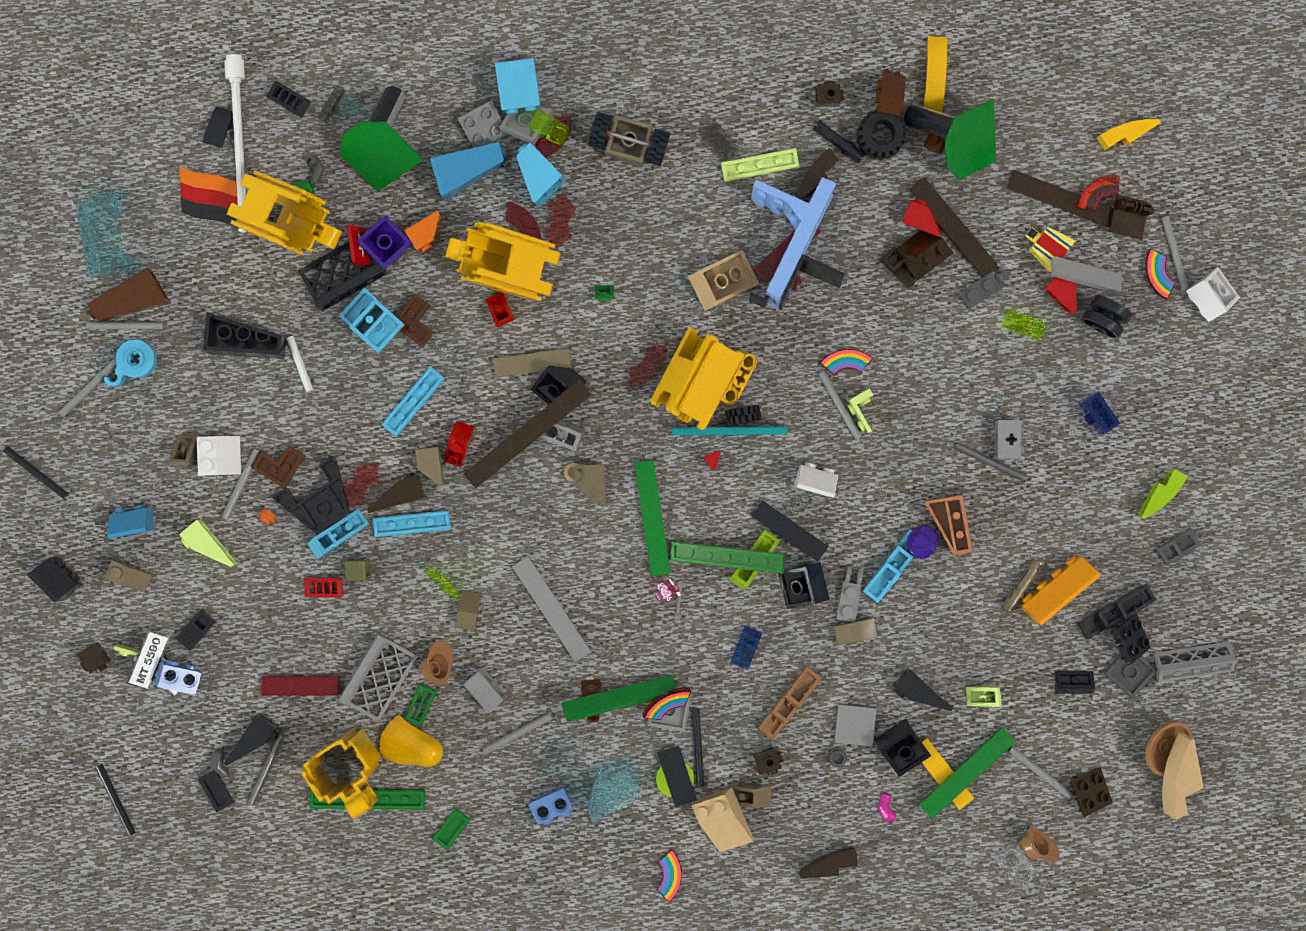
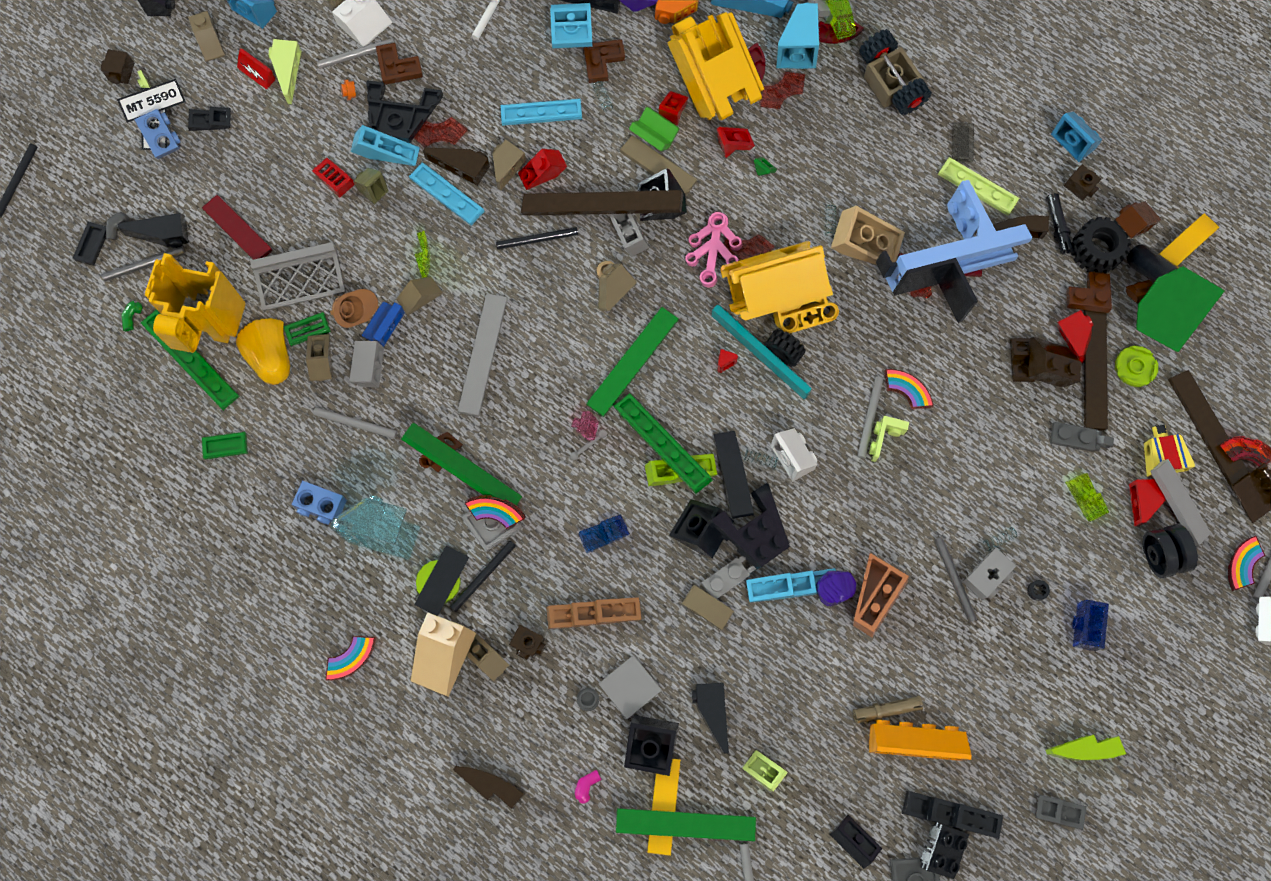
camera: 35 degrees right, 15 degrees down
(187, 565) = (255, 69): none -> red slope
(294, 810) = (127, 315): none -> green arm
(450, 716) = (319, 357): none -> dark tan slope
(465, 653) = (383, 323): none -> blue panel
(504, 494) = (536, 238): none -> black bar
(505, 341) = (655, 129): none -> bright green panel
(567, 294) = (734, 139): none -> red slope
(628, 386) = (713, 246): none -> bright pink plant
(794, 62) = (1076, 136): none -> dark azure slope
(847, 555) = (761, 537): none -> black wing
(910, 175) = (1094, 297): none -> reddish brown plate
(972, 199) = (1136, 366): none -> lime tile
(1050, 423) = (1037, 583): none -> black bush

